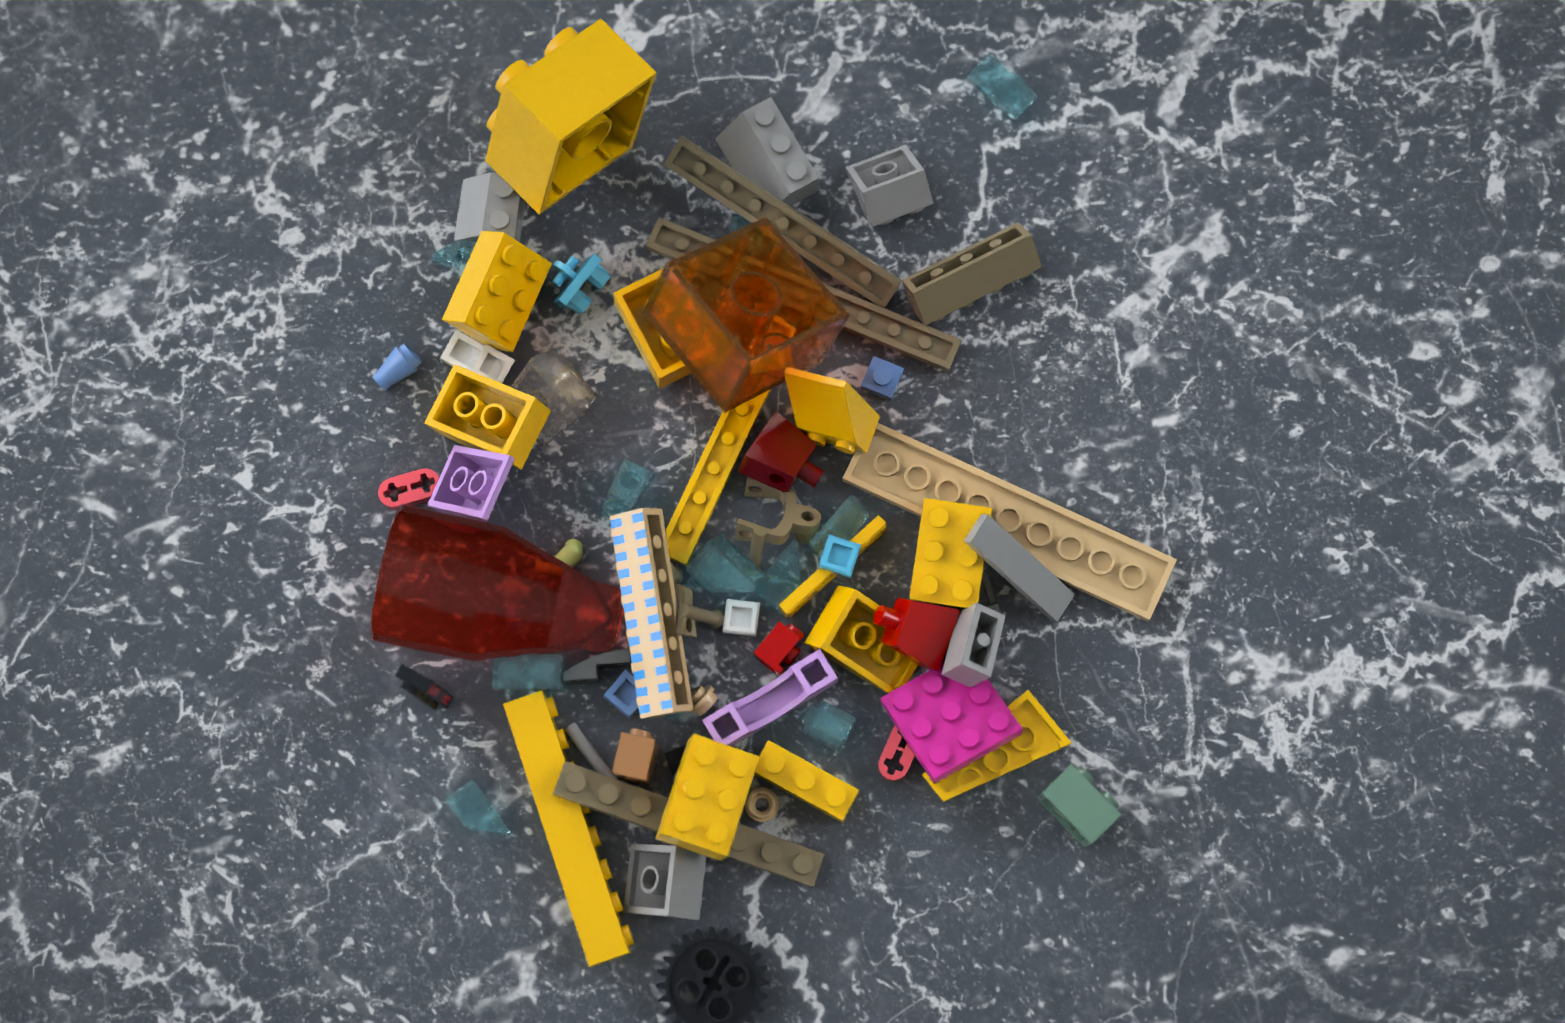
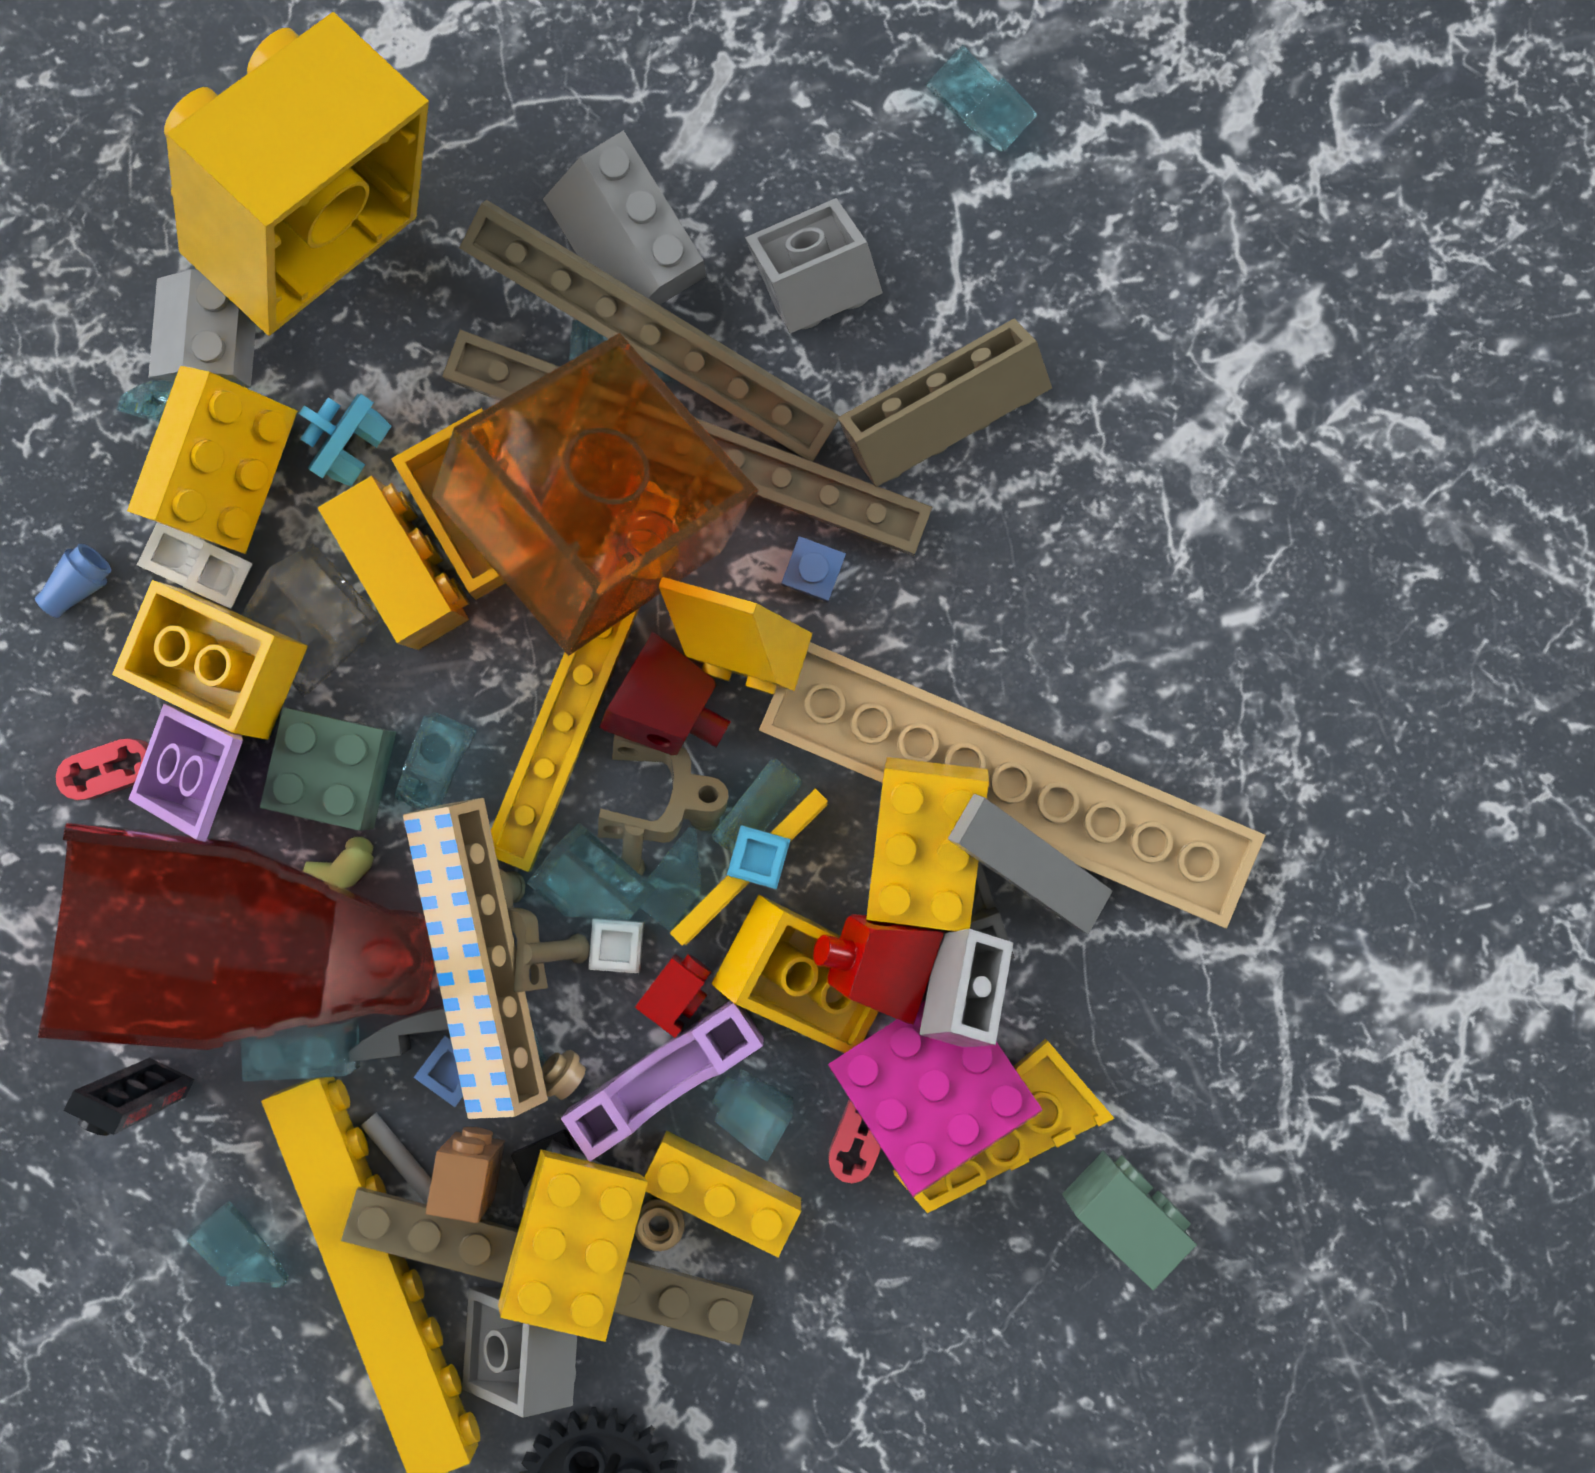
camera: 10 degrees left, 10 degrees up
(558, 492) = (327, 769): none -> sand green brick
(612, 360) = (395, 562): none -> yellow brick

